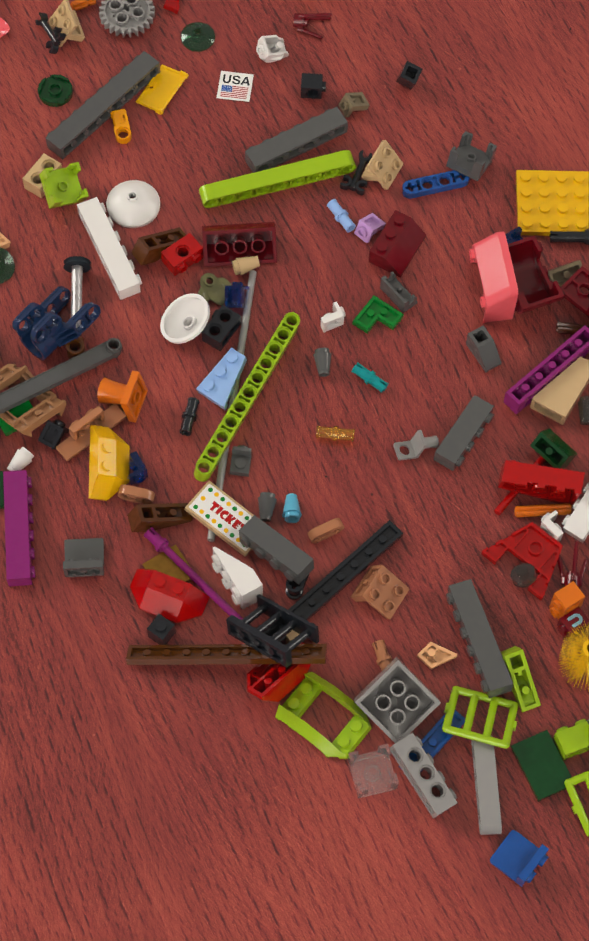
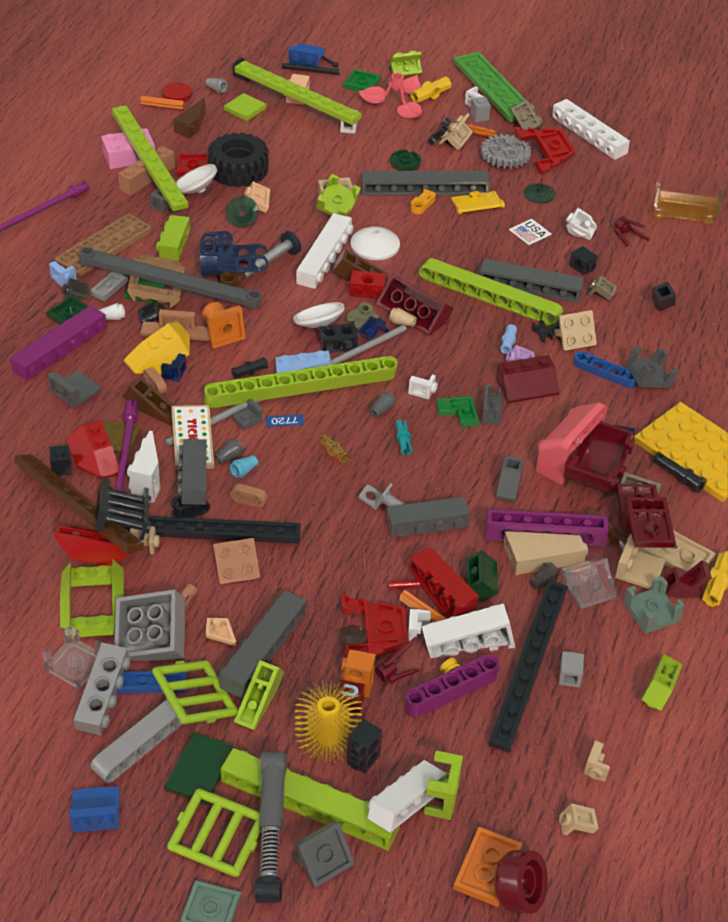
camera: 45 degrees right, 20 degrees down
(266, 440) = (284, 420): none -> blue sticker

